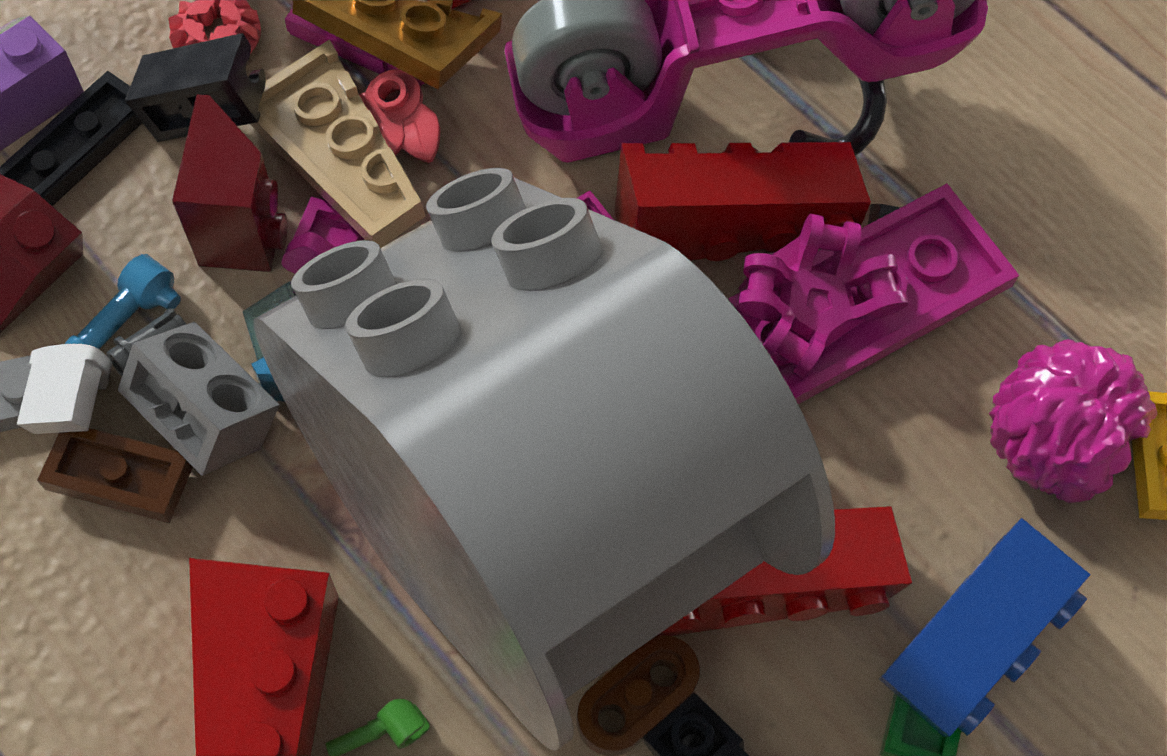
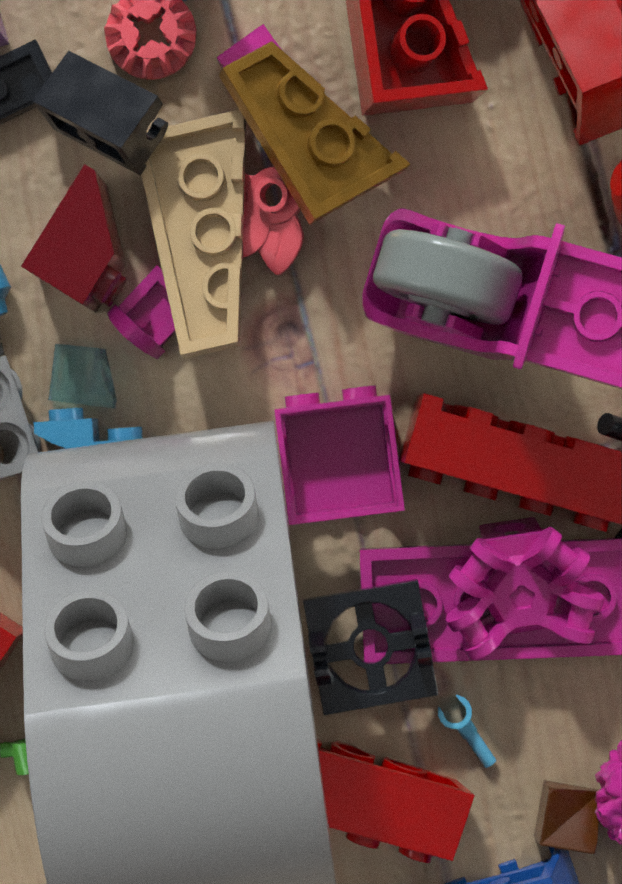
camera: 30 degrees right, 25 degrees up
(843, 471) = (469, 733): none -> medium azure hand
(990, 502) = (567, 817): none -> reddish brown slope

